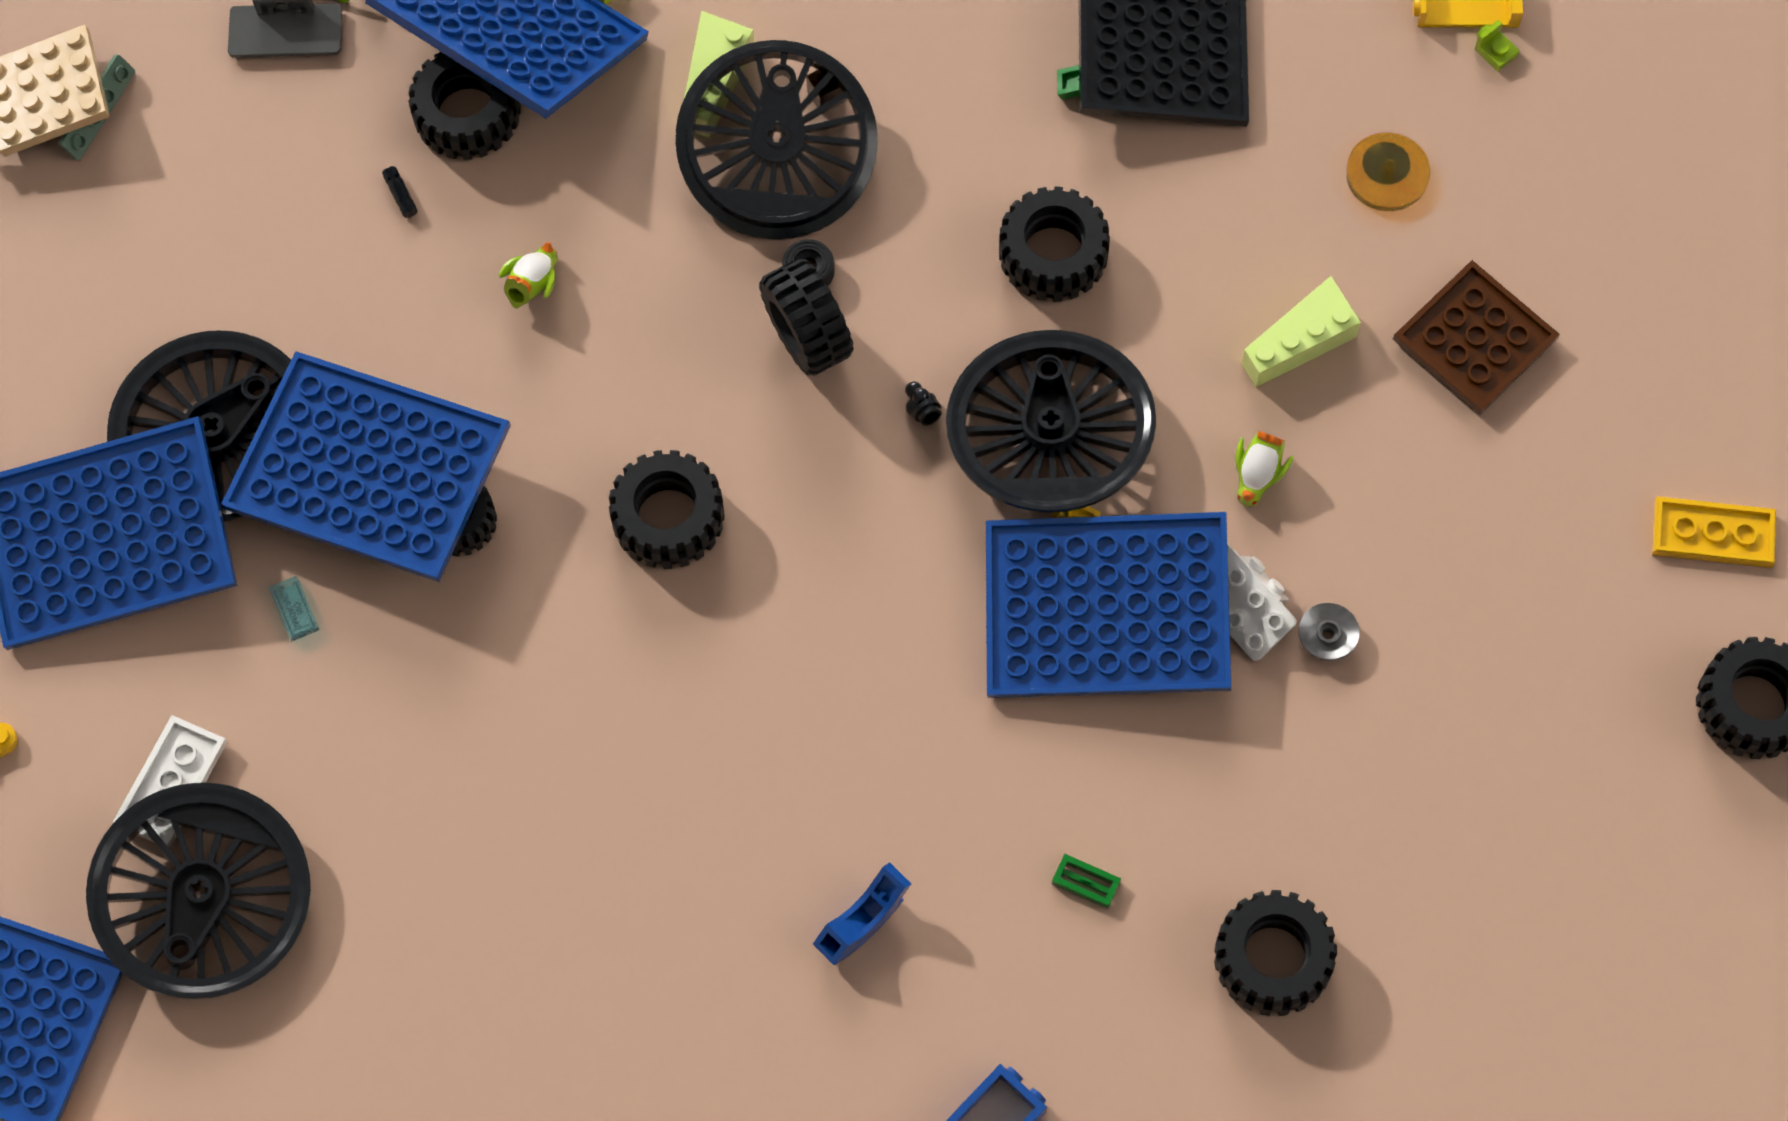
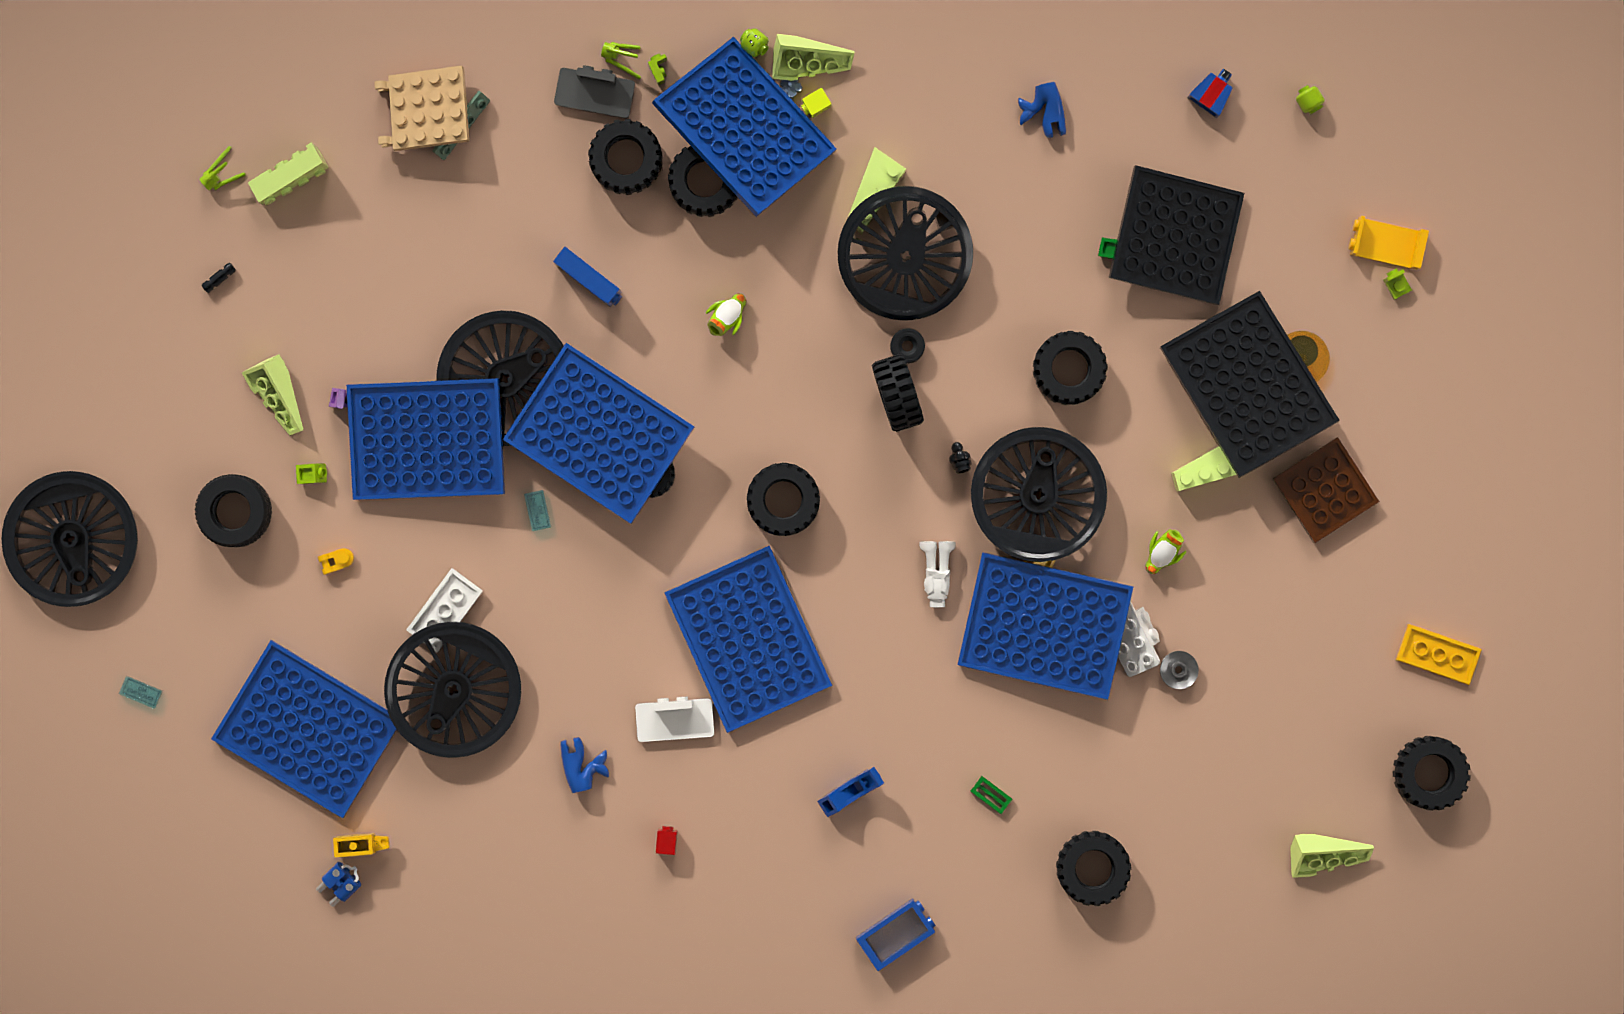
camera: 15 degrees right, 20 degrees up
(314, 262) = (588, 277): none -> blue window
(334, 66) = (620, 131): none -> black tyre
(399, 191) = (651, 231): black axle -> none
(410, 970) = (572, 764): none -> blue piece
(561, 869) = (674, 719): none -> white bracket
(583, 1059) = (666, 840): none -> red brick
(654, 727) = (748, 639): none -> blue plate
(926, 580) = (937, 582): none -> white piece
(1323, 211) = (1249, 384): none -> black plate
(1624, 858) = (1318, 852): none -> yellowish green wedge

